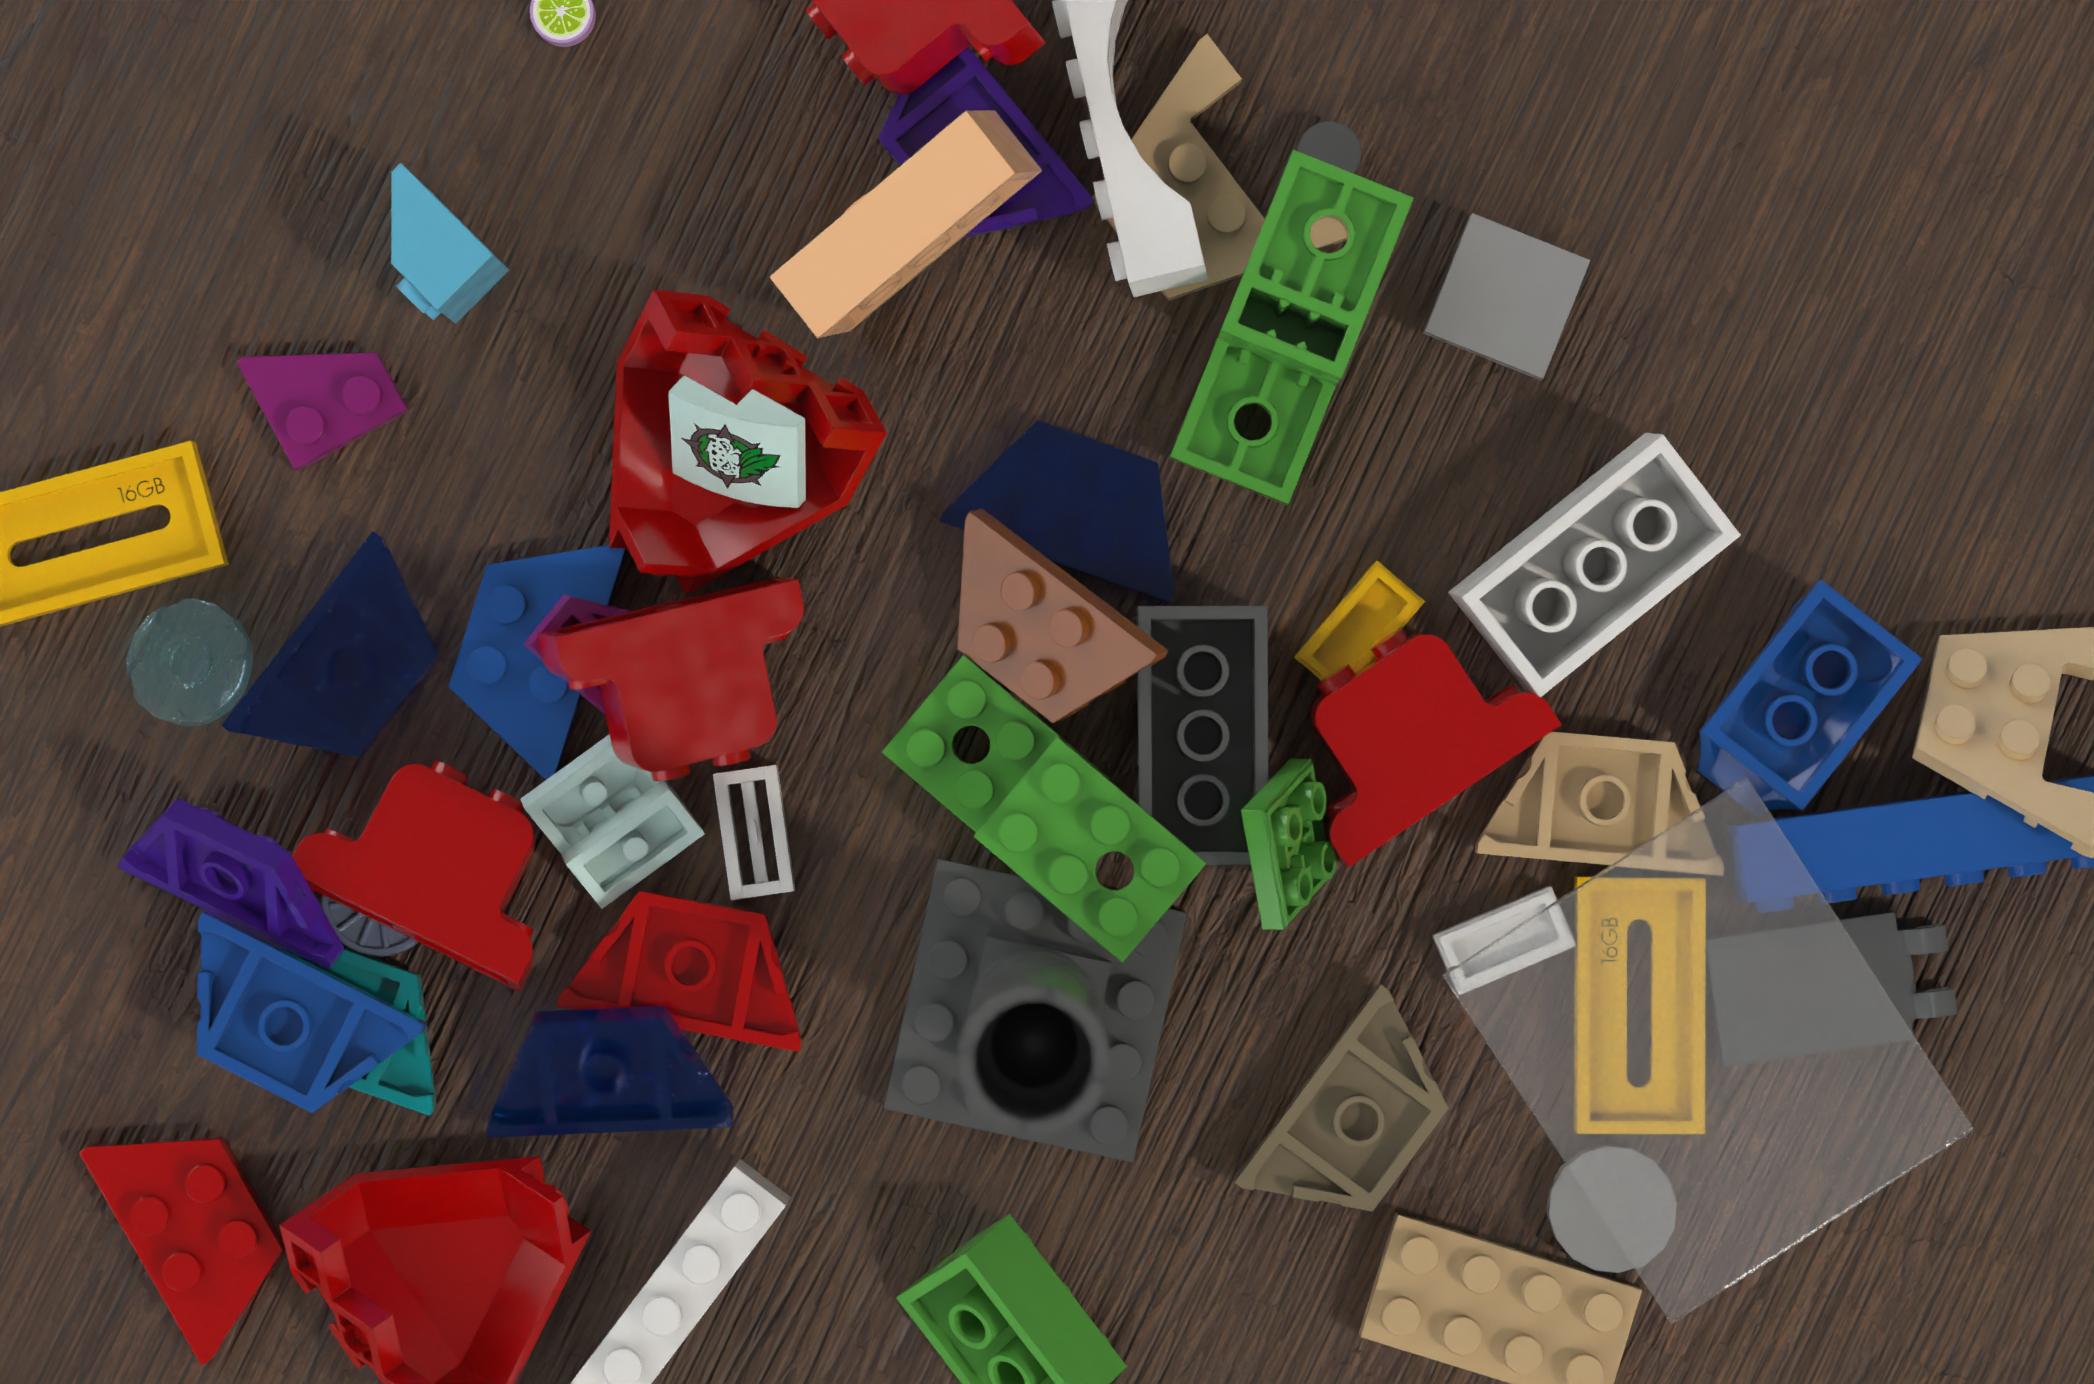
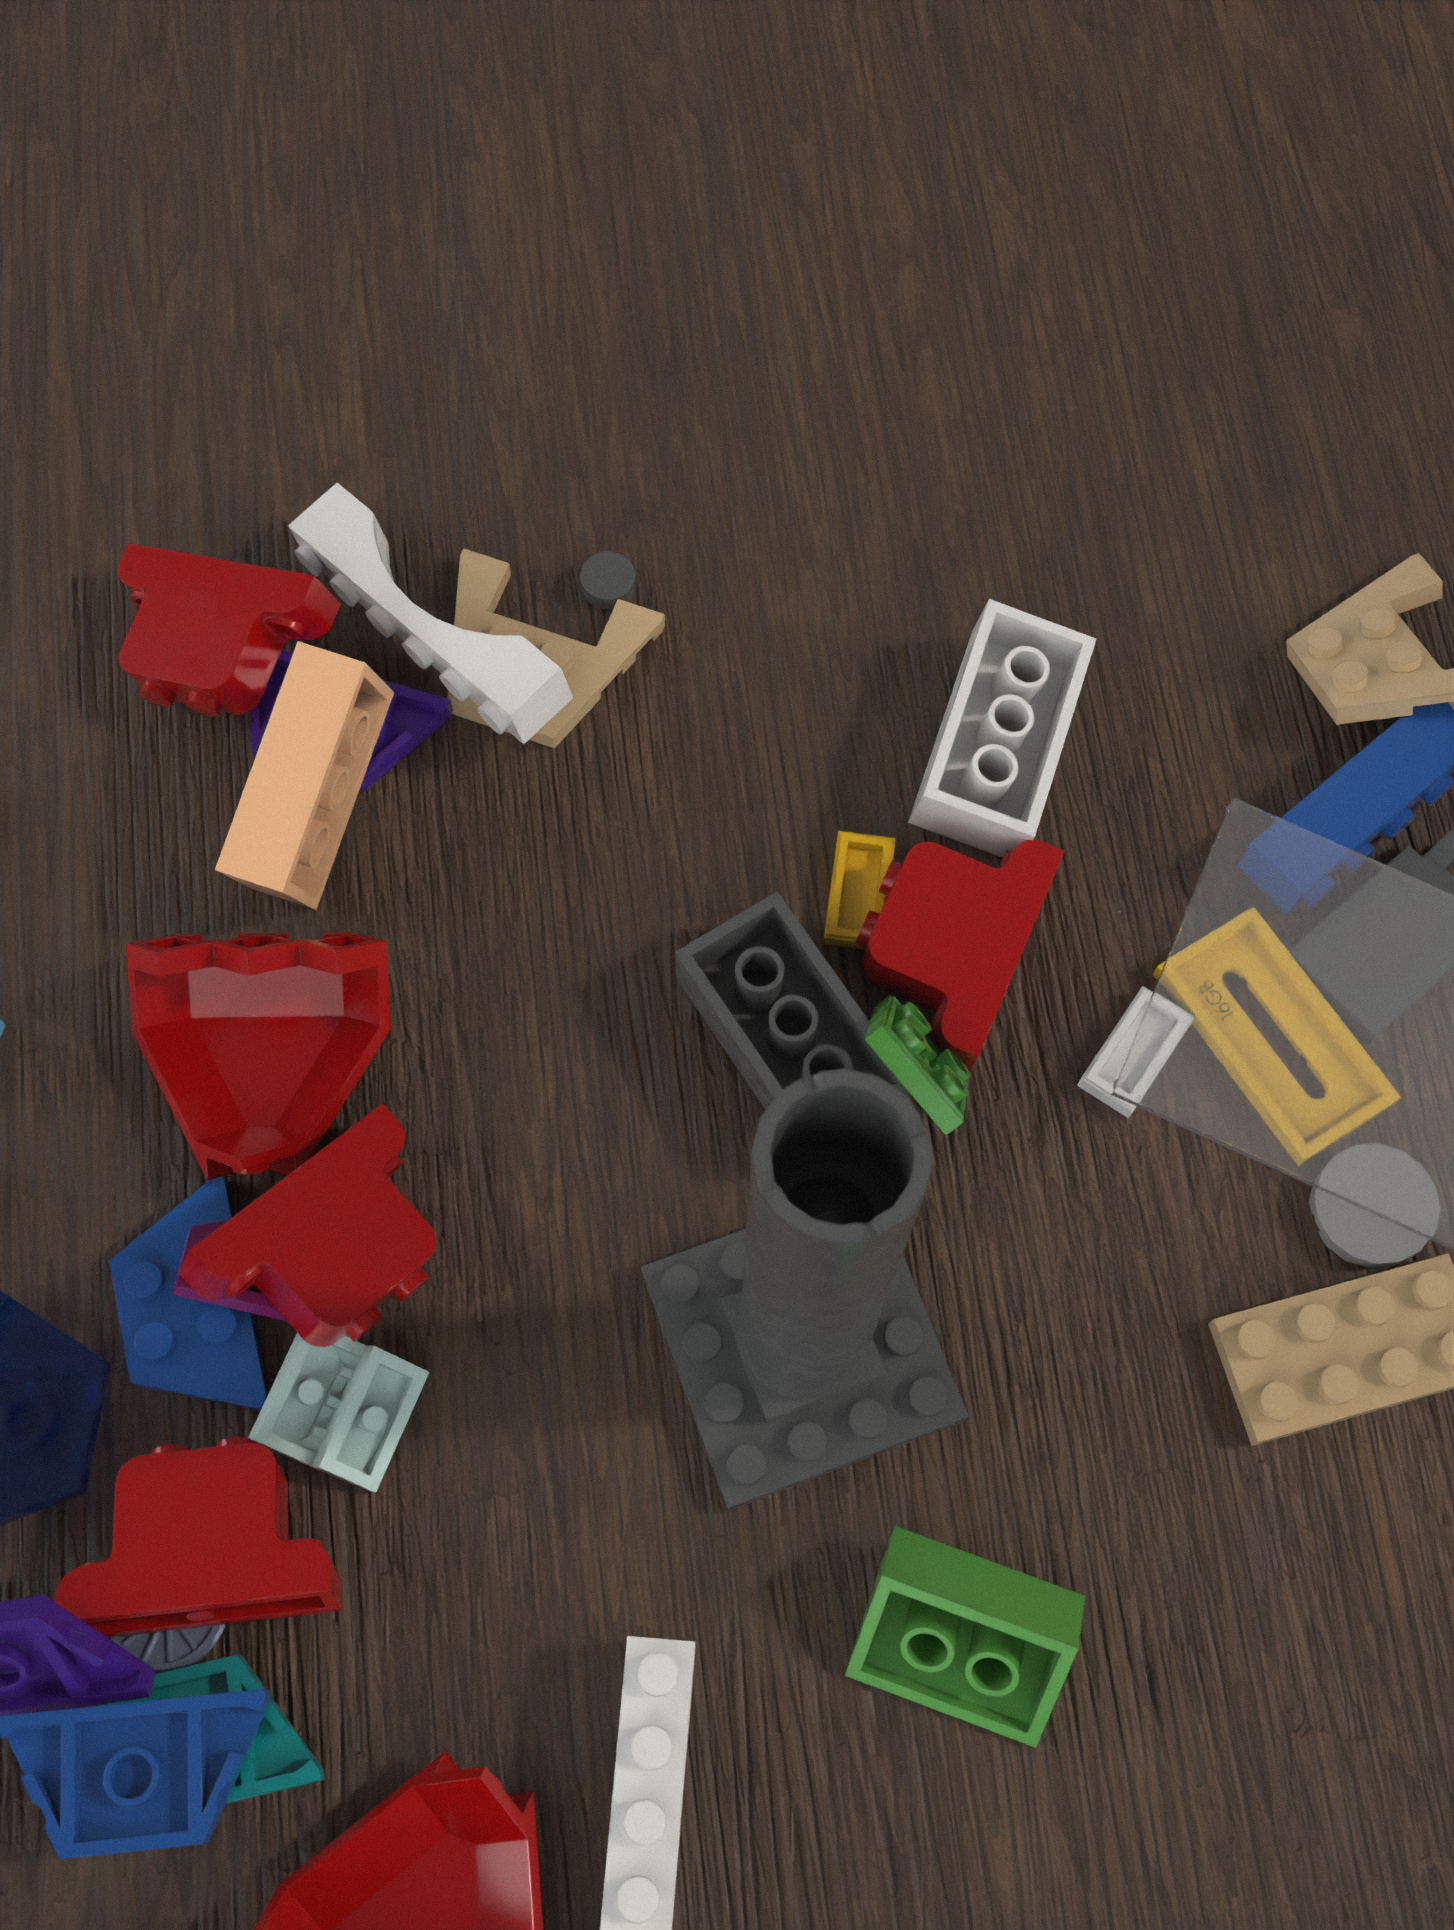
camera: 30 degrees left, 20 degrees down
(607, 1076) = (463, 1635): clear blue wing -> none
(698, 960) = (483, 1497): red wing -> none
(729, 838) = (505, 1385): white tile -> none
(739, 449) = (267, 1023): light aqua slope -> none
(1040, 625) = (608, 1022): dark orange wing -> none
(1044, 808) = (682, 1167): bright green bracket -> none
(1078, 507) = (575, 933): clear blue wing -> none
(1291, 327) = (659, 695): bright green bracket -> none
(1353, 1117) = (1120, 1263): dark tan wing -> none
(1506, 296) = (805, 596): light grey tile -> none
(1589, 799) = (1122, 904): tan wing -> none
(1804, 701) = (1227, 731): blue slope -> none

